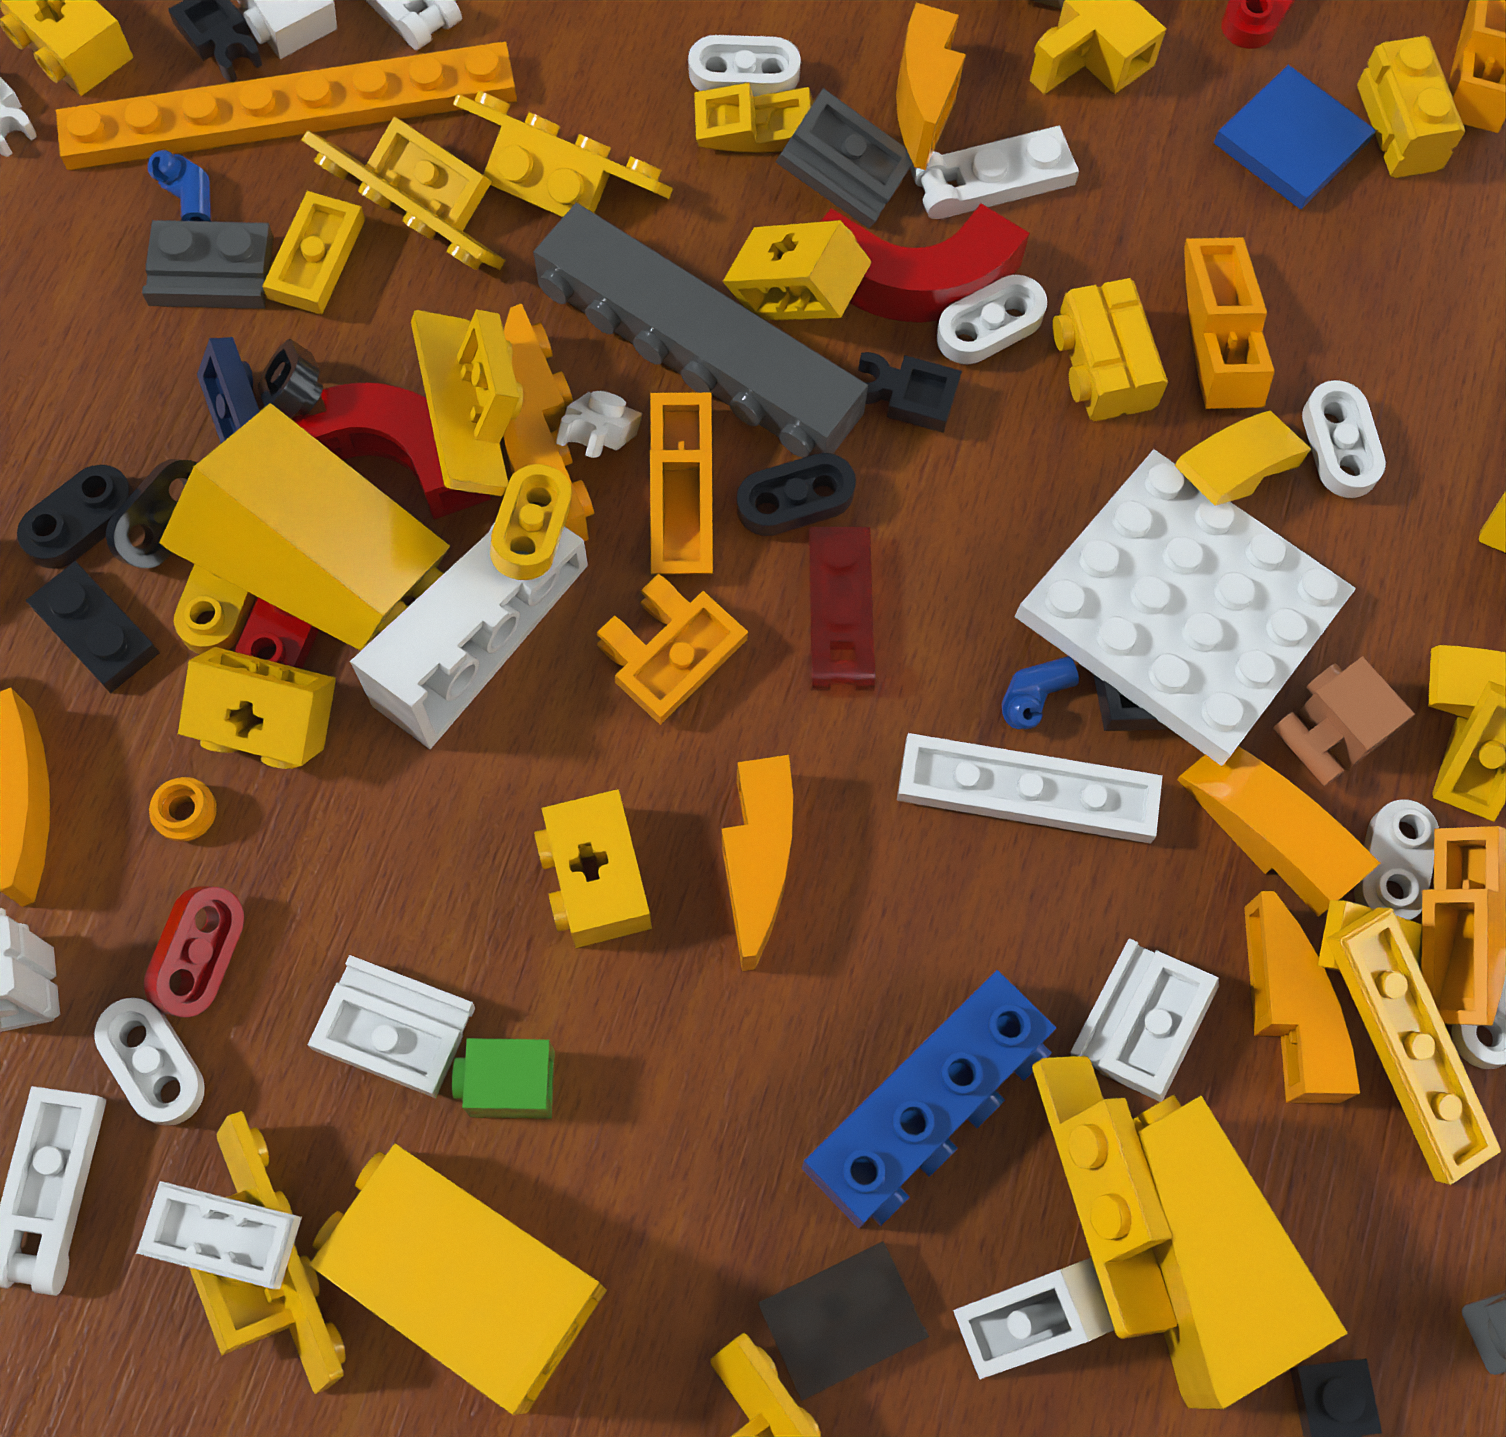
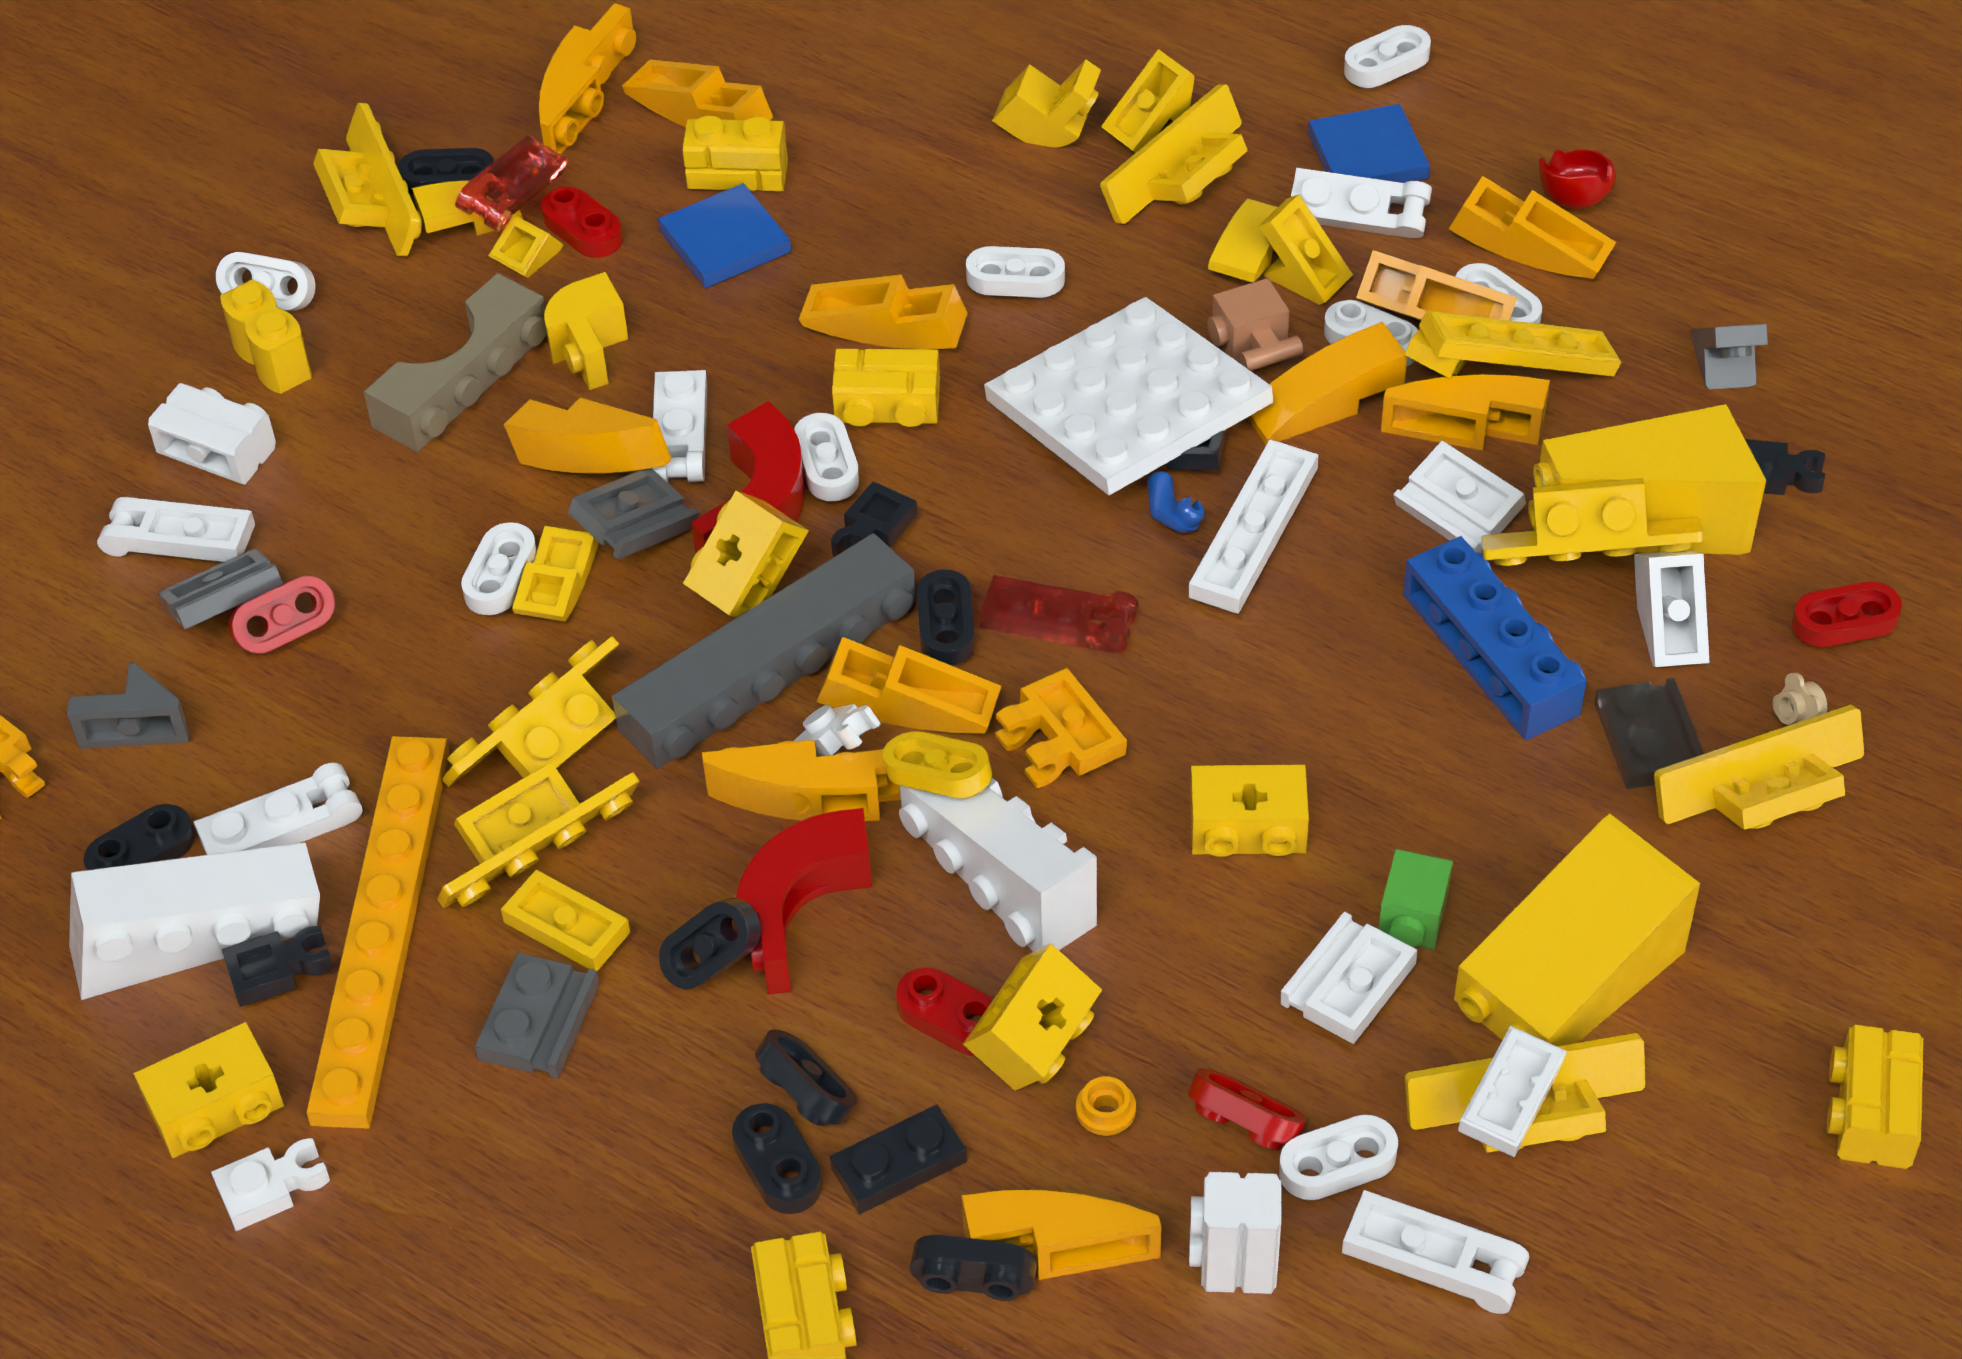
camera: 70 degrees left, 20 degrees down
(184, 181) = (440, 1016): blue arm -> none
(211, 593) = (893, 1054): yellow plate -> none
(227, 386) = (711, 1003): dark blue plate -> none
(303, 531) = (878, 947): yellow slope -> none
(468, 395) = (786, 784): yellow bracket -> none
(759, 852) = (1269, 701): light orange slope -> none
(1240, 456) = (1014, 330): yellow slope -> none

